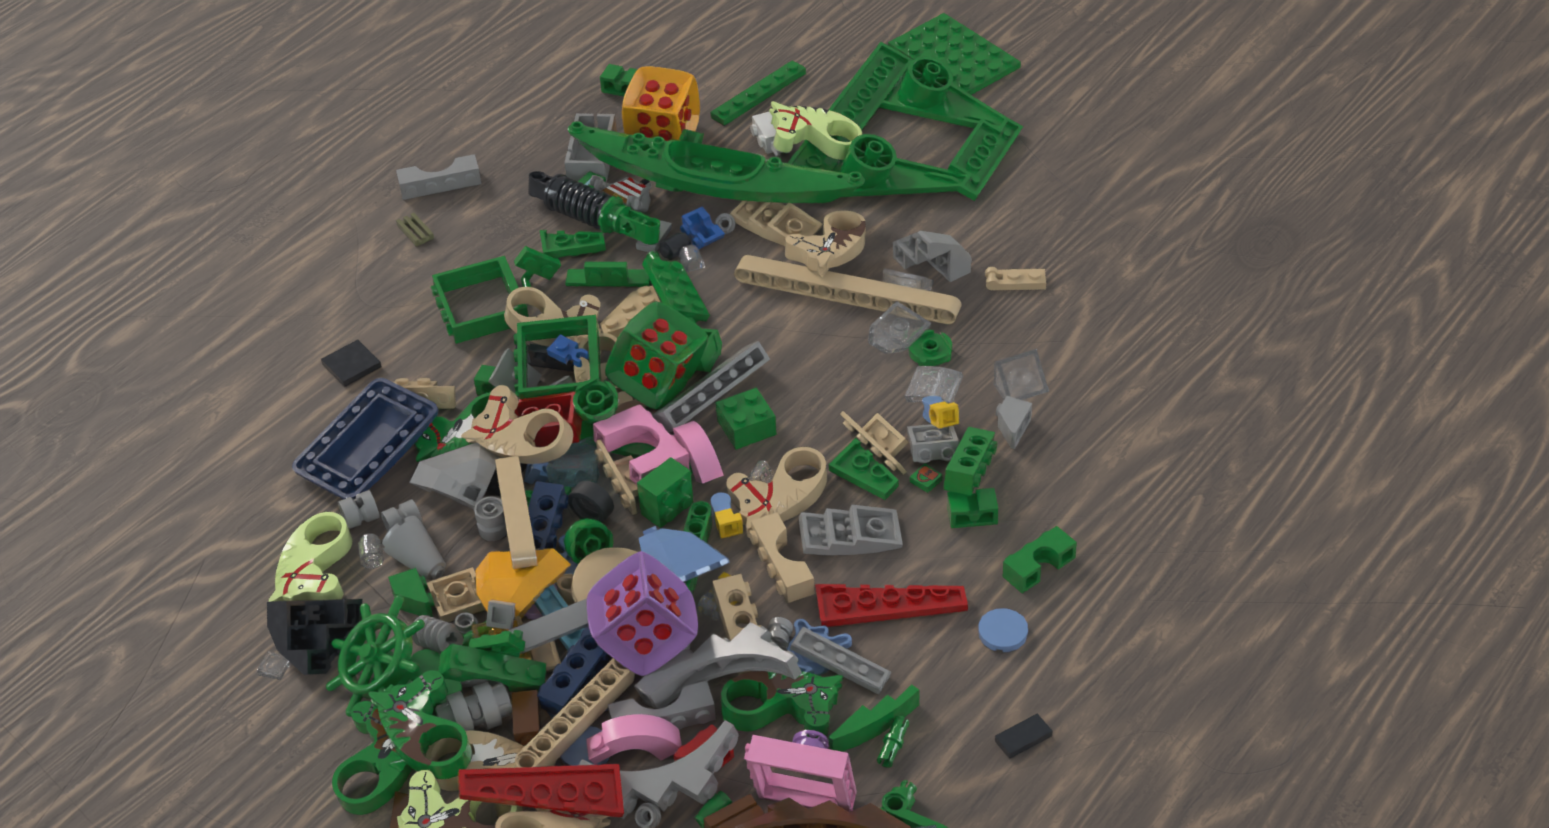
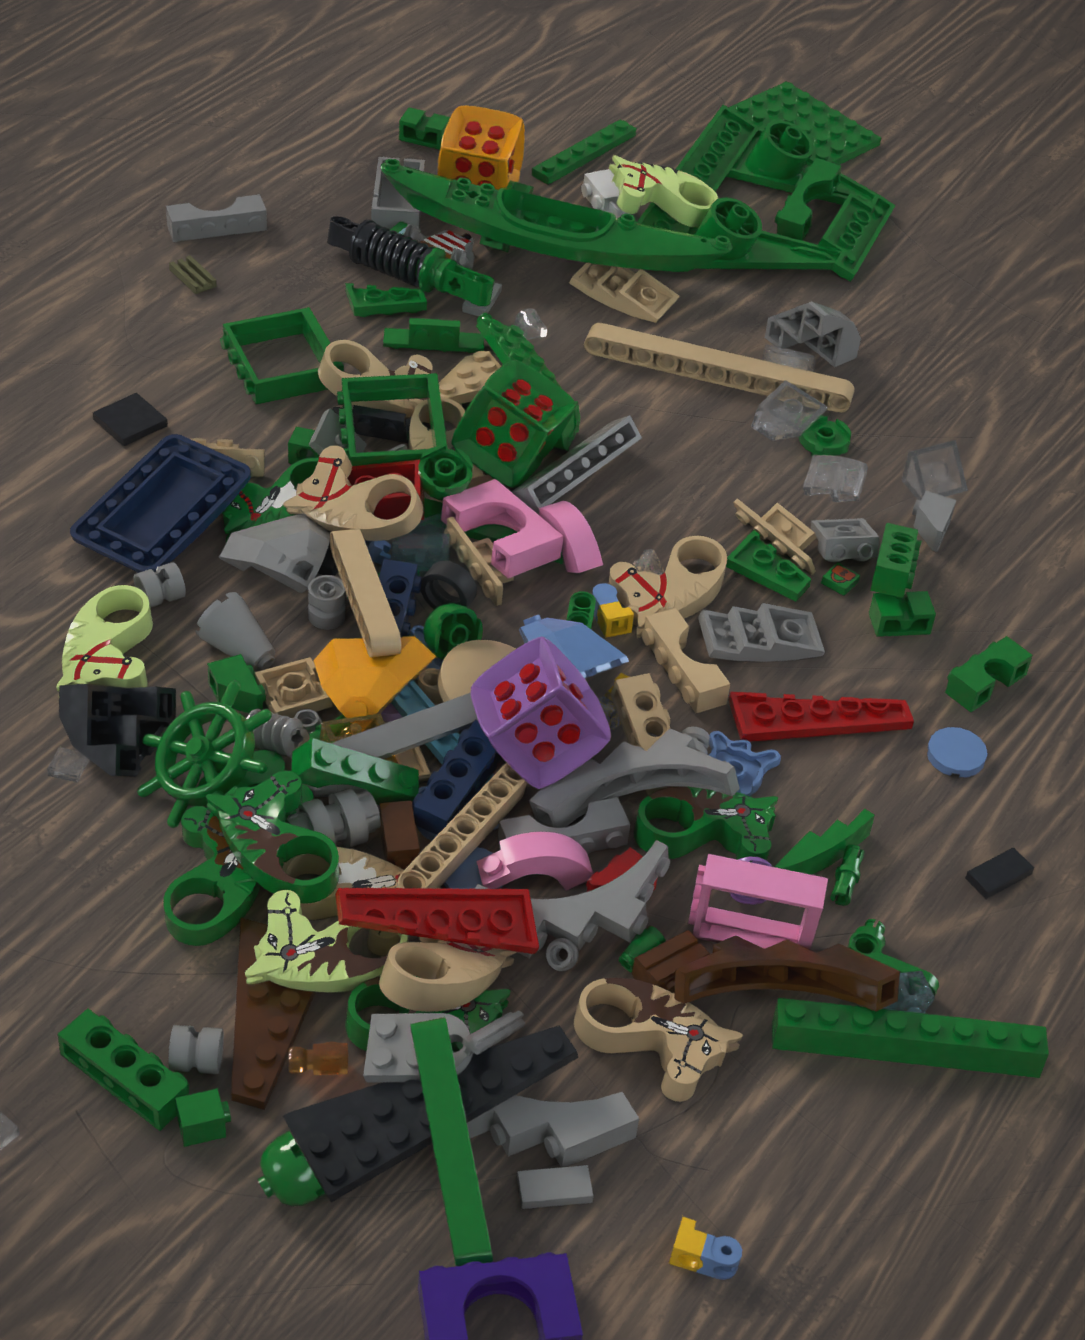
camera: 10 degrees left, 0 degrees up
(370, 551) = (179, 634): clear brick -> none
(393, 516) = (204, 595): light grey wheel -> none
(500, 614) = (360, 709): light grey tile -> none
(505, 643) = (375, 741): green plate -> none
(536, 263) = (348, 318): green plate -> none
(566, 349) = (406, 411): blue plate -> none
(665, 492) = (538, 579): green brick -> none
(671, 246) = (508, 308): black brick -> none
(700, 228) = (537, 291): blue cylinder -> none
(722, 217) = (562, 282): light grey plate -> none
(746, 418) = (621, 502): green brick -> none
(840, 243) = (701, 317): tan animal -> none
(840, 660) = (775, 780): light grey tile -> none
(939, 412) = (849, 505): yellow leg -> none
(955, 109) = (818, 181): none -> green arch
(1015, 279) = (910, 367): tan plate -> none

